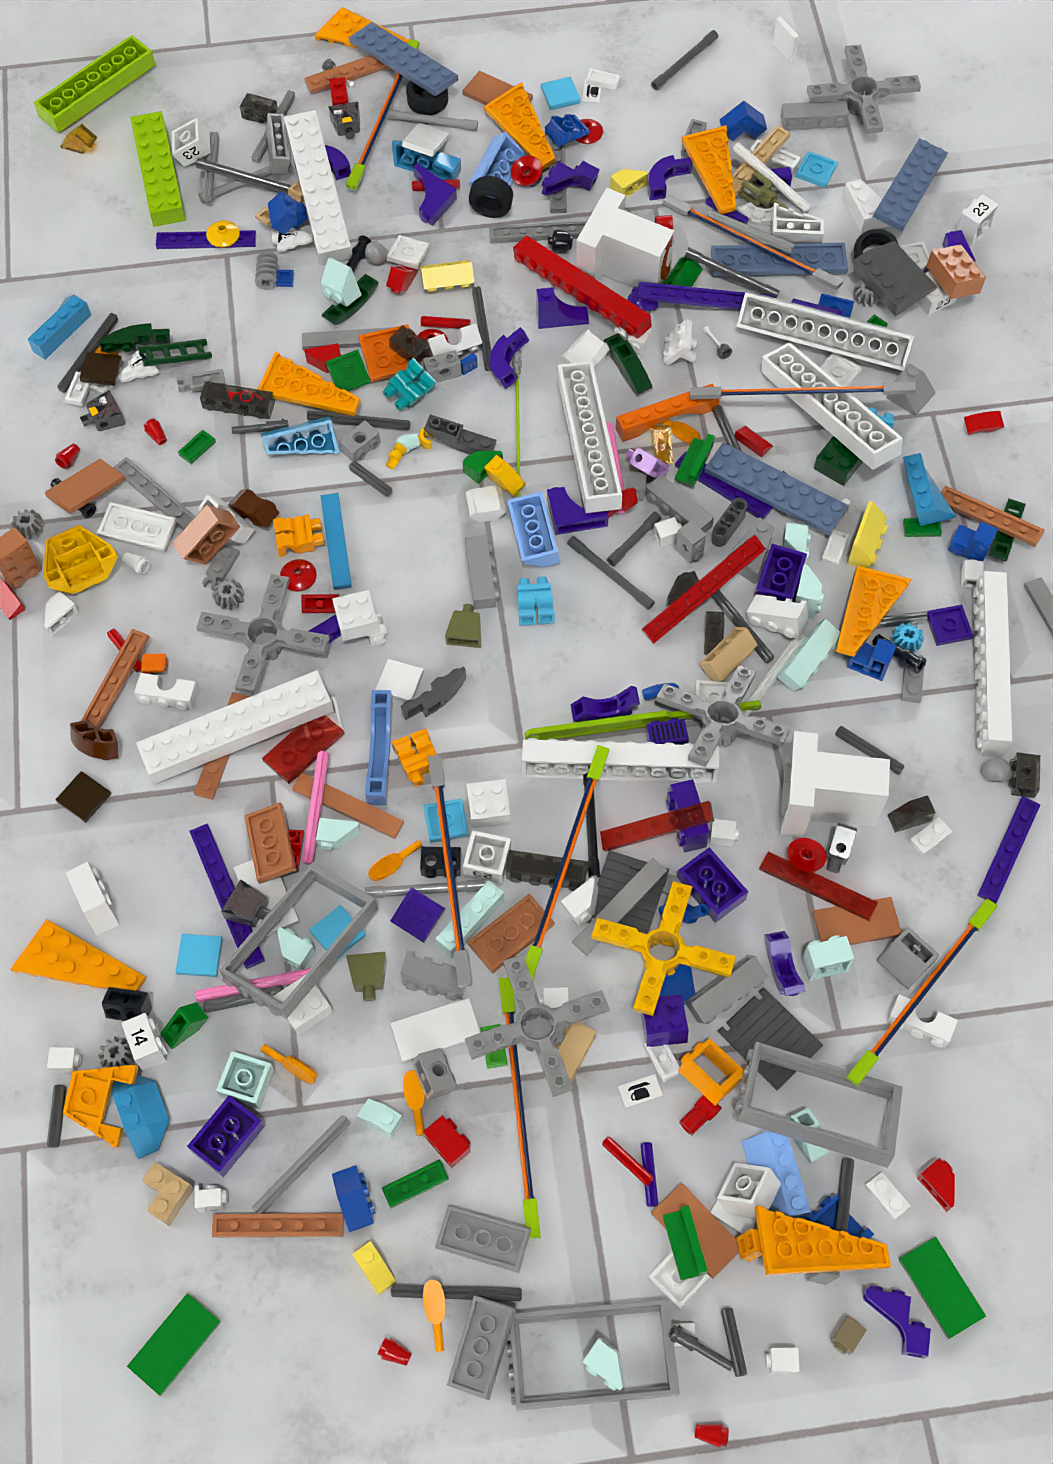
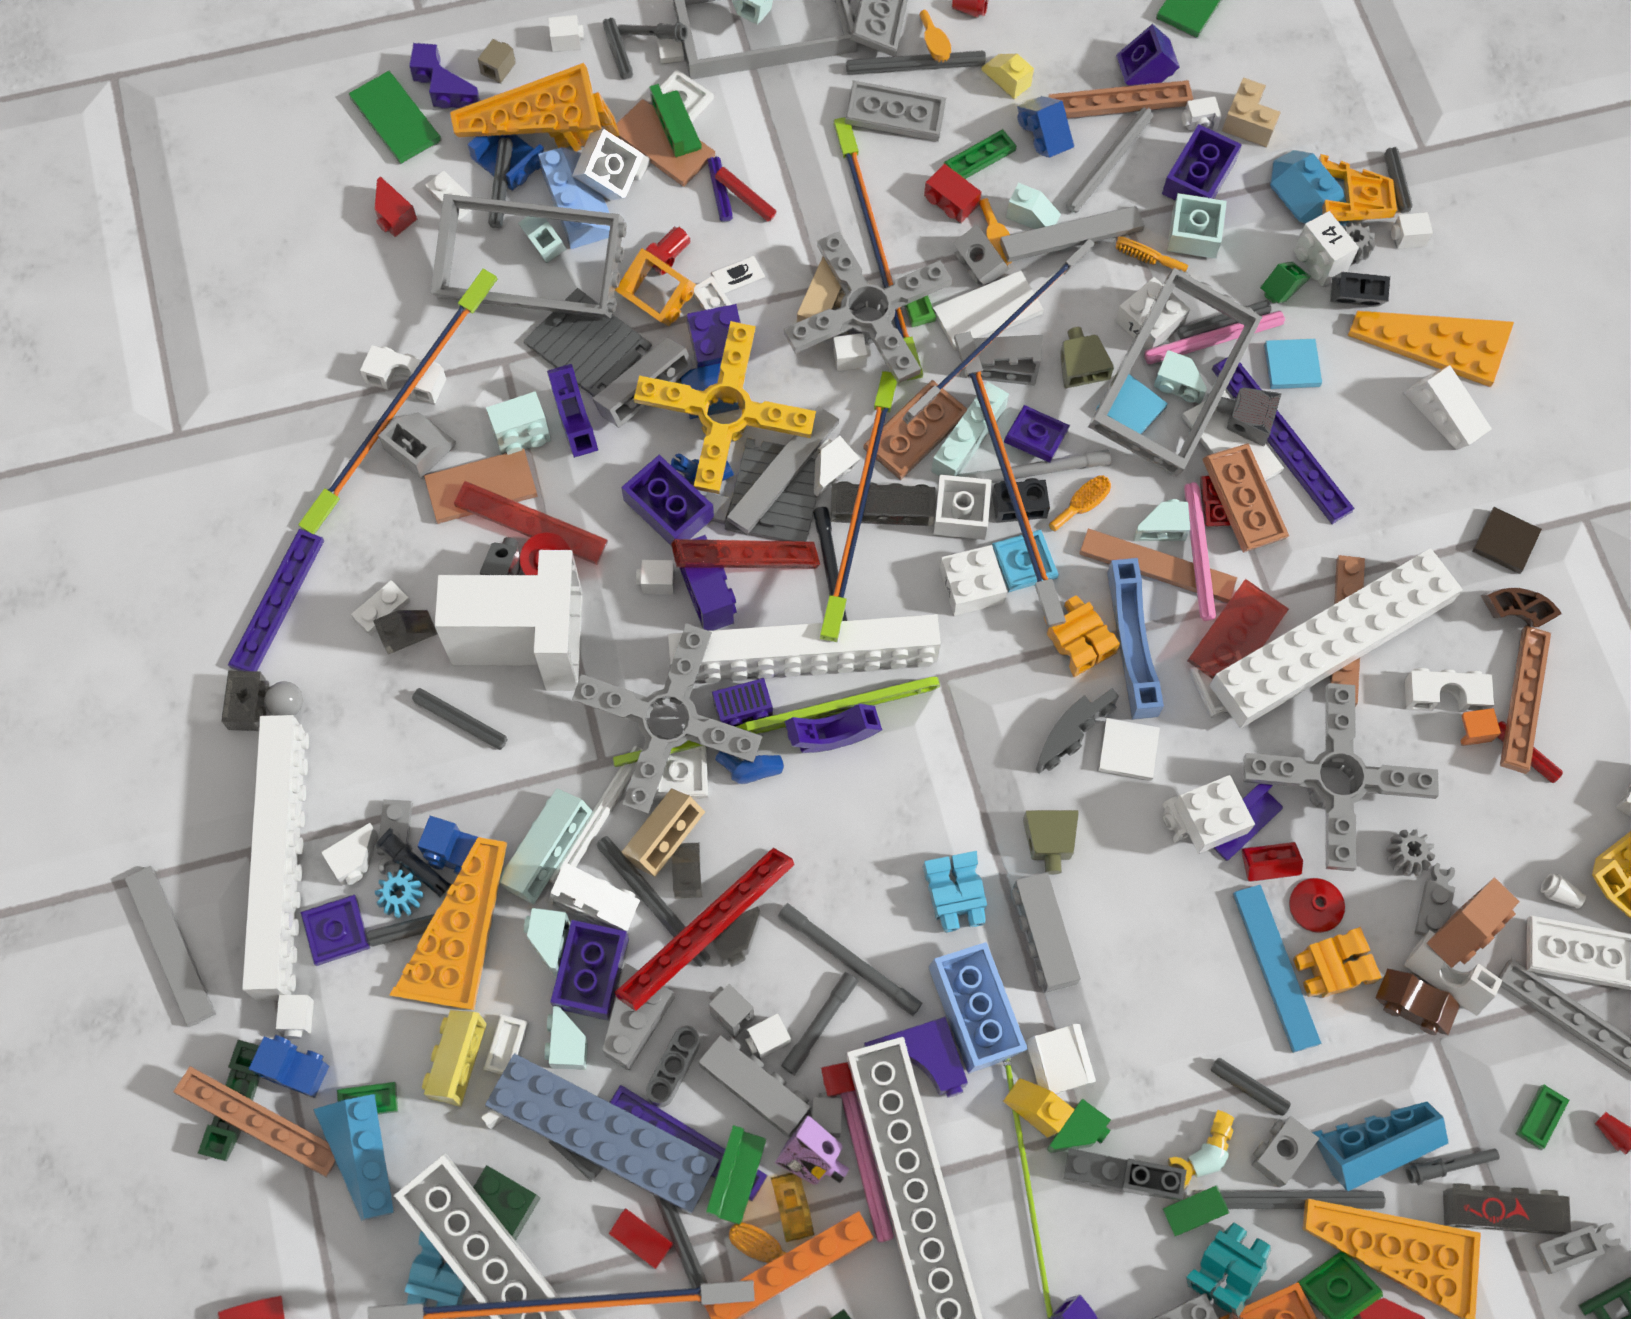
camera: 170 degrees right, 5 degrees up
(243, 1260) = (1148, 58): none -> dark purple slope
(351, 1090) = (1071, 233): none -> light grey tile
(363, 1056) = (932, 393): none -> piece
(417, 417) = (1196, 1210): none -> green tile
(942, 664) = (352, 855): none -> white slope

